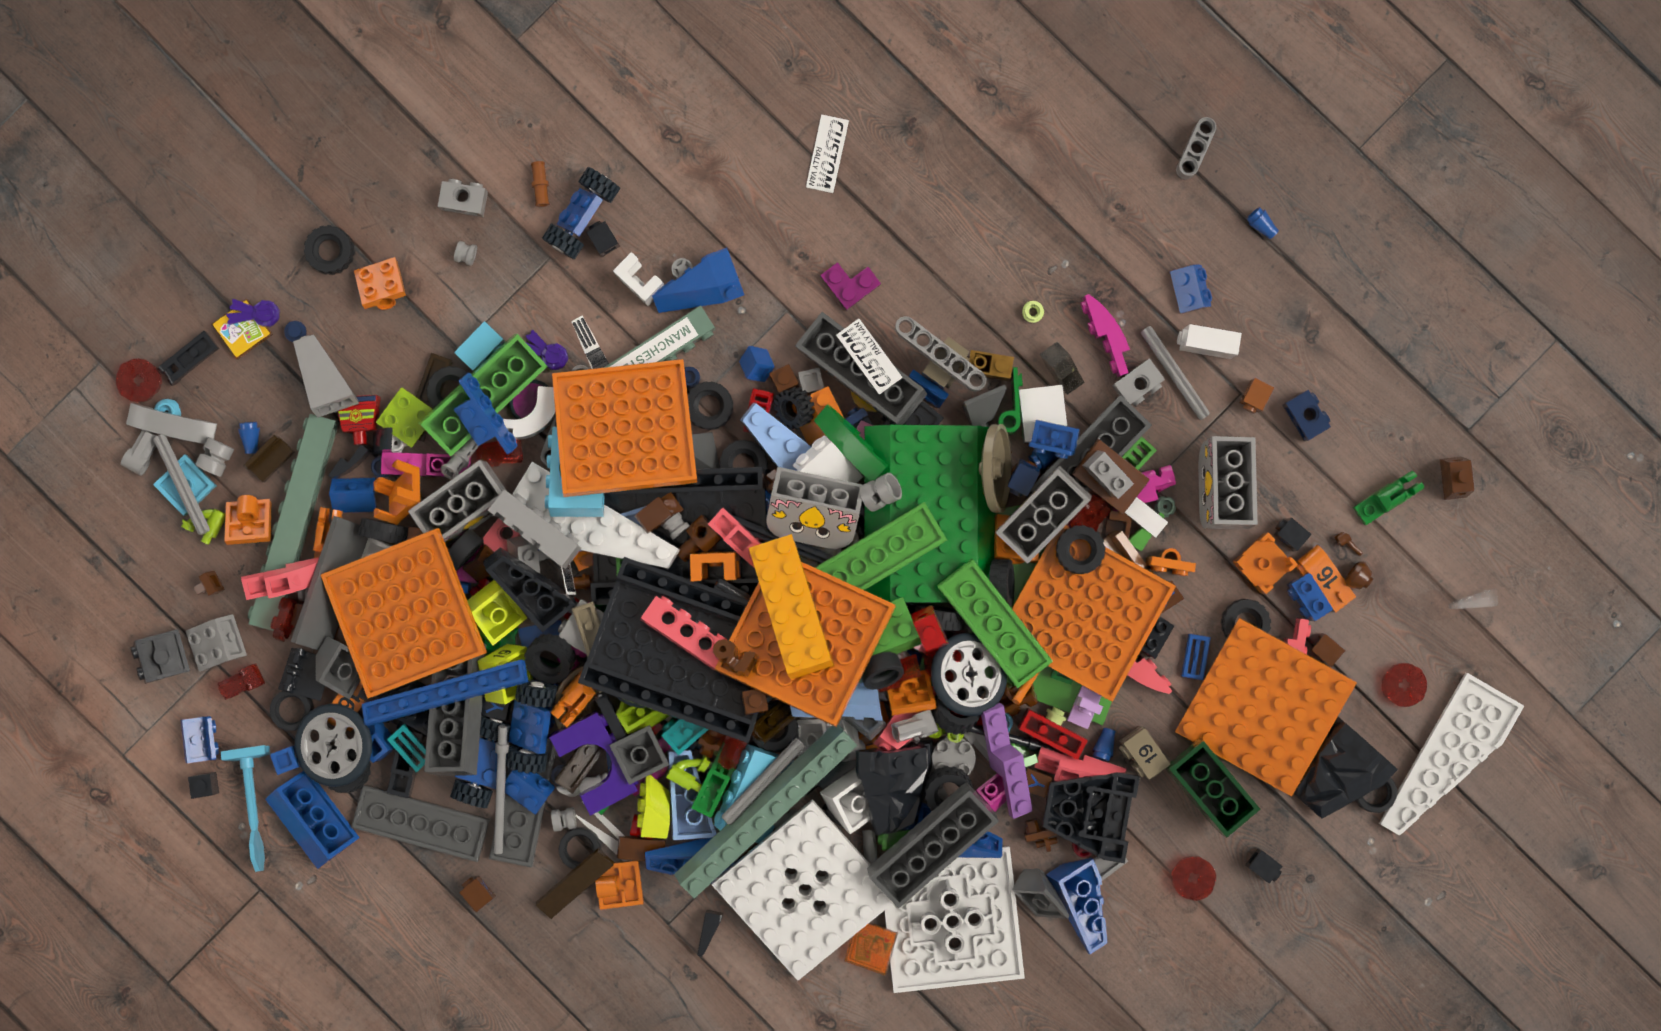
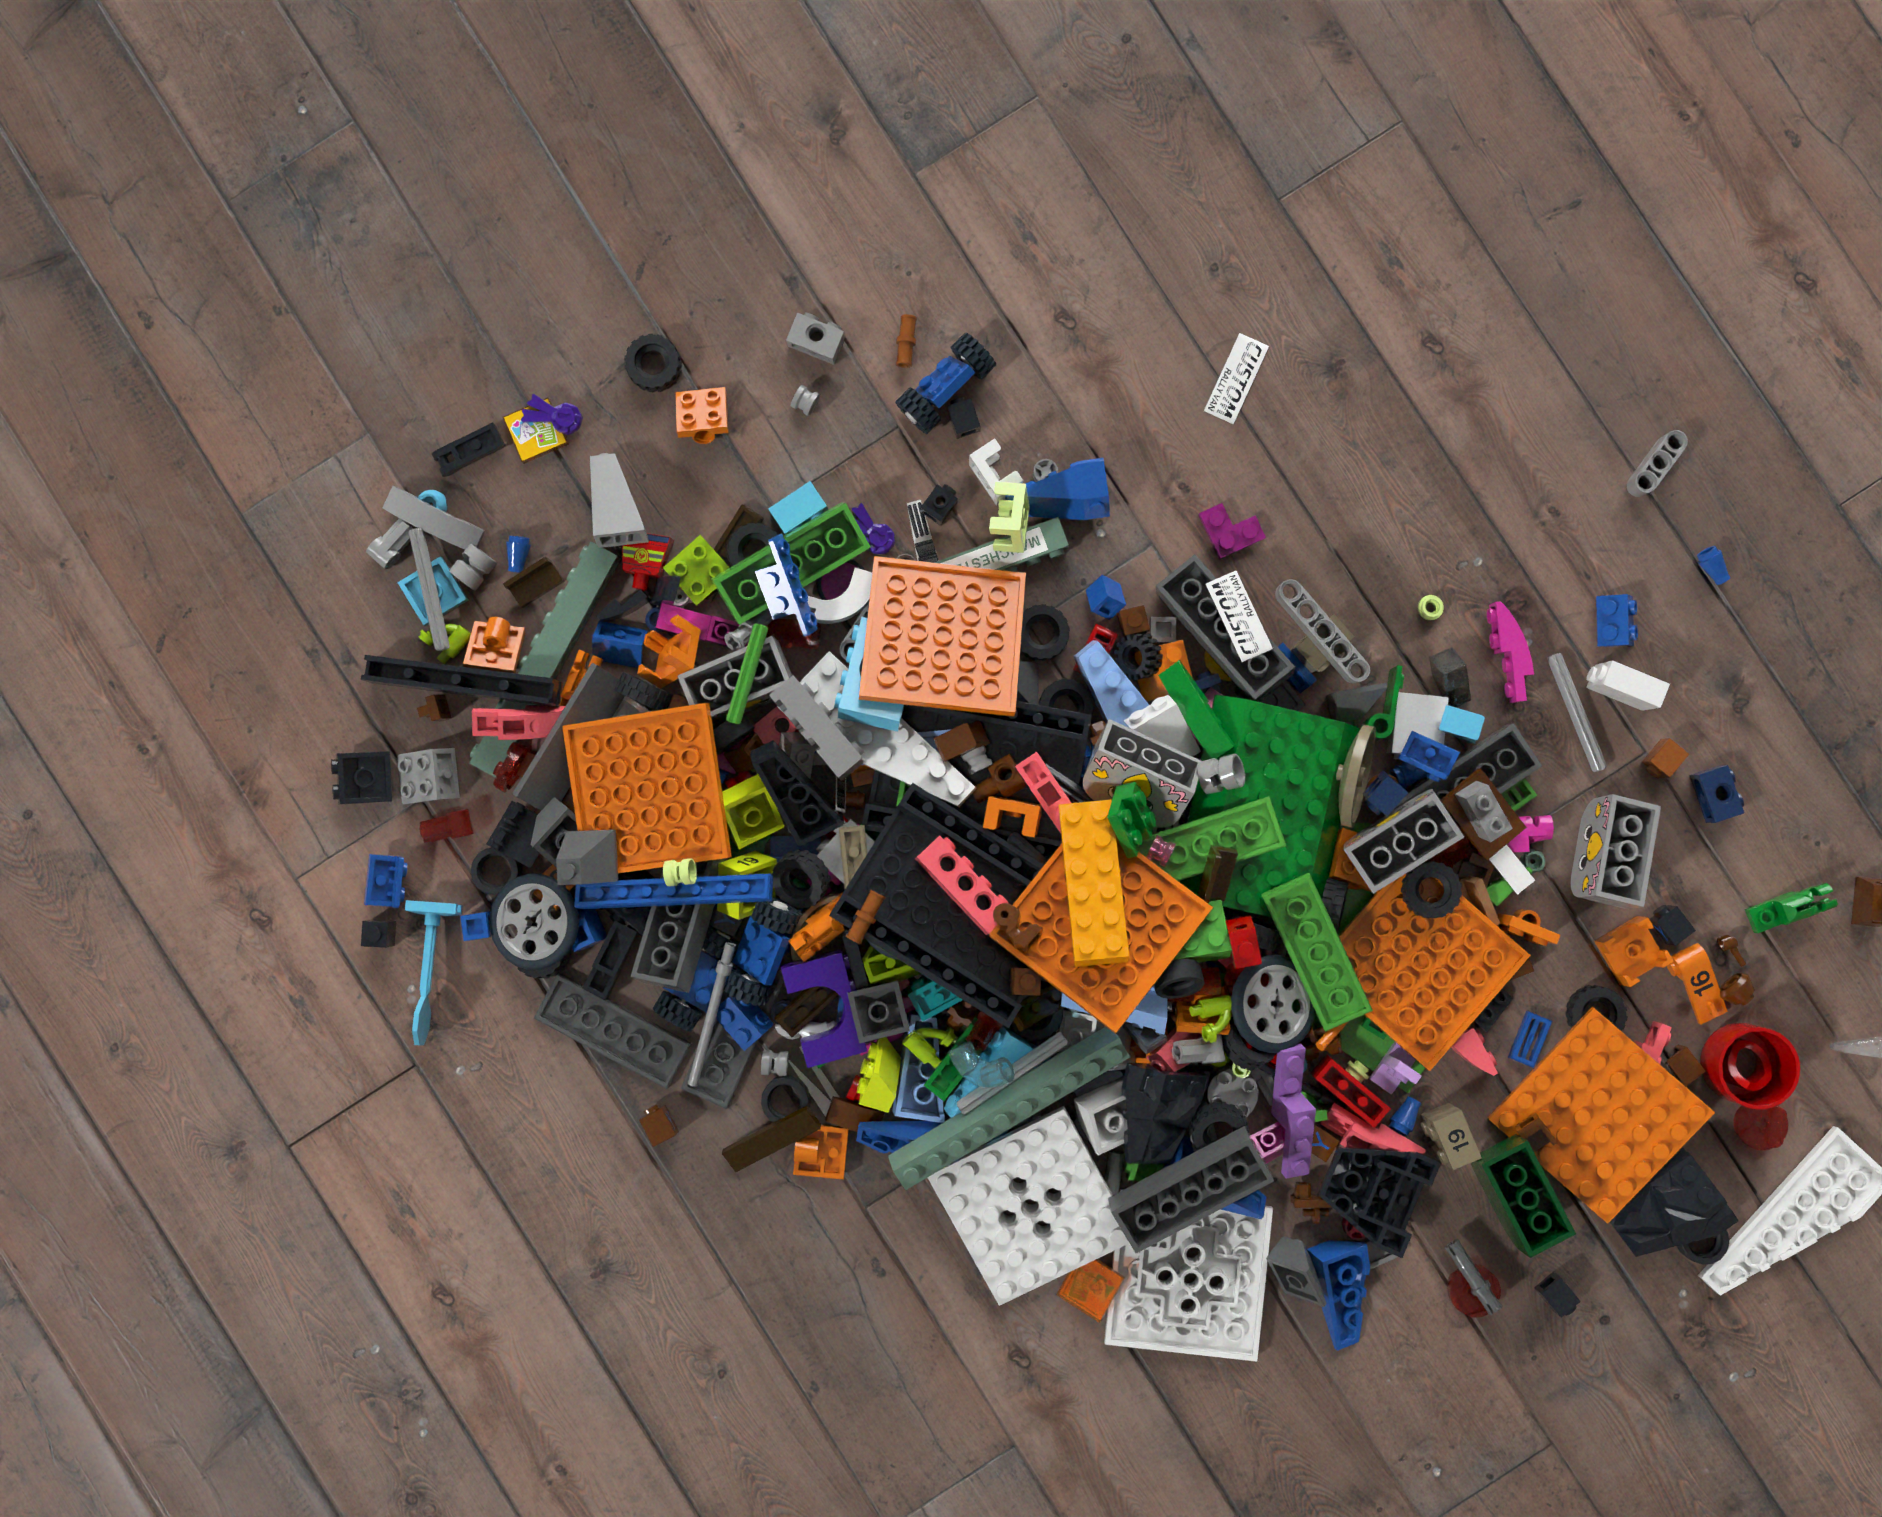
camera: 25 degrees right, 0 degrees up
(129, 371) = (397, 451): clear red plate -> none
(227, 555) = (462, 681): none -> black tile
(295, 330) = (594, 445): dark blue plate -> none
(312, 819) = (491, 998): blue slope -> none
(366, 680) = (587, 857): none -> dark grey slope
(401, 751) = (601, 931): teal tile -> none
(445, 675) = (679, 872): none -> yellowish green wheel
(465, 496) = (747, 673): none -> bright green axle
(598, 324) = (936, 512): none -> black brick
(608, 677) = (865, 917): none -> dark orange pin
(666, 315) = (1018, 517): none -> yellowish green panel
(692, 377) = (1030, 596): dark blue plate -> none
(711, 922) = (914, 1219): black slope -> none
(733, 785) = (979, 1071): none -> clear light blue cylinder
(811, 545) = (1131, 818): none -> green plate
(843, 567) = (1161, 850): none -> clear pink wheel
(895, 576) = (1217, 873): none -> dark brown panel
(916, 689) = (1213, 1007): none -> lime plant
(992, 365) = (1380, 659): pearl gold slope -> none
(1078, 404) = (1462, 724): none -> medium azure slope
(1145, 372) = (1546, 705): light grey brick -> none
(1191, 868) = (1479, 1286): none -> dark grey pin
(1213, 734) = (1535, 1132): none -> reddish brown panel
(1310, 597) = (1676, 1001): blue bracket -> none
(1402, 643) = (1775, 1069): none -> red piece

